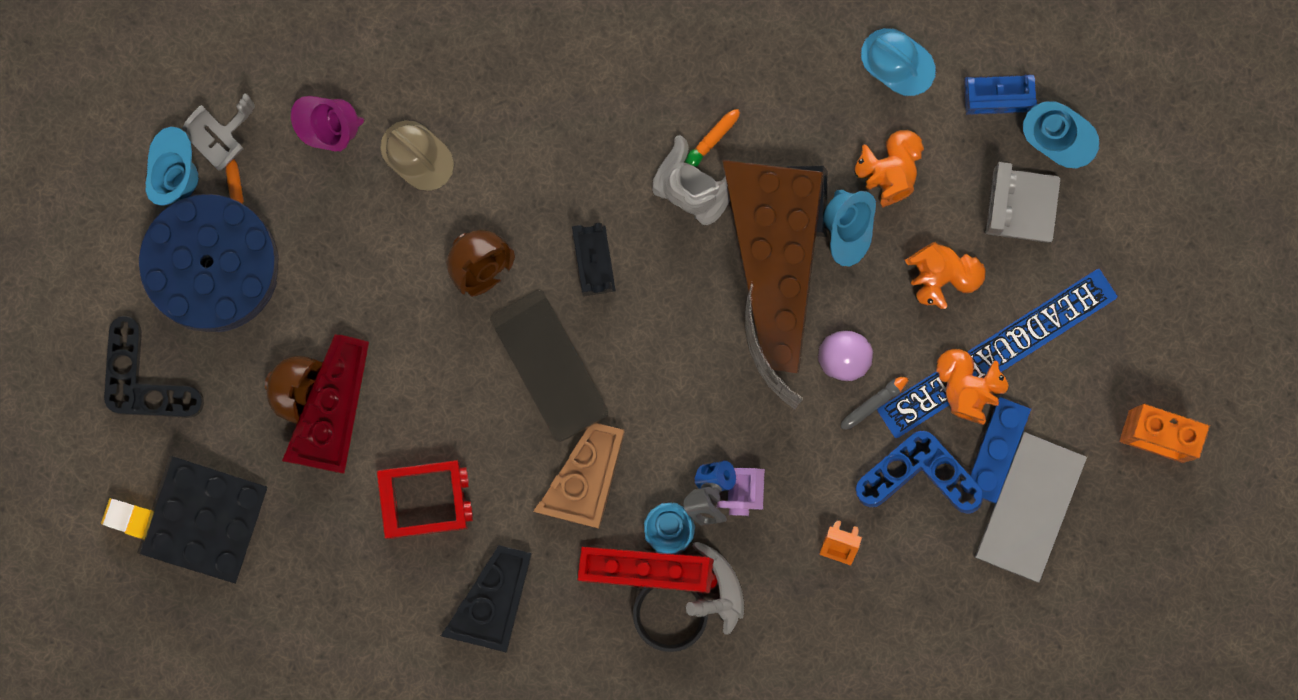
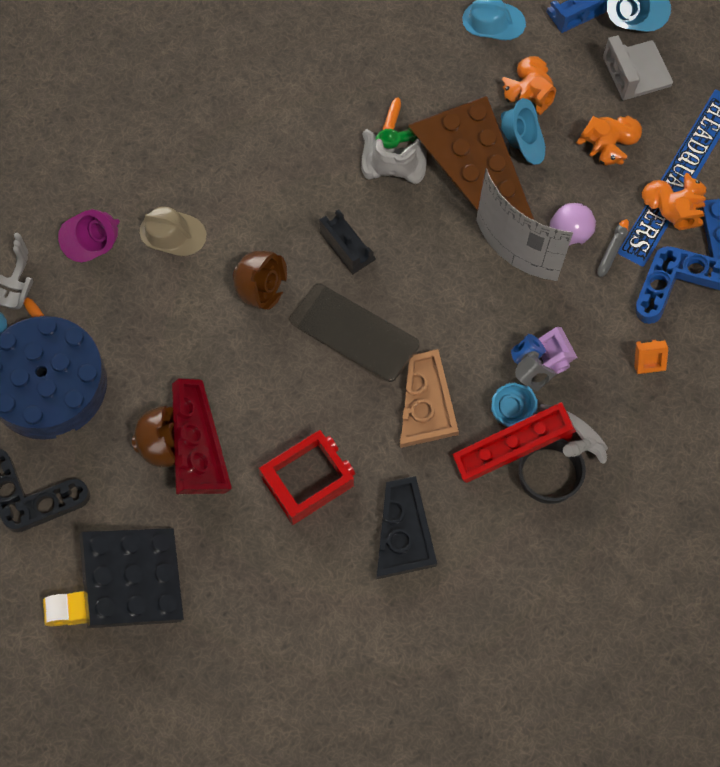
camera: 25 degrees left, 15 degrees down
(700, 161) = (392, 138): none -> green piece

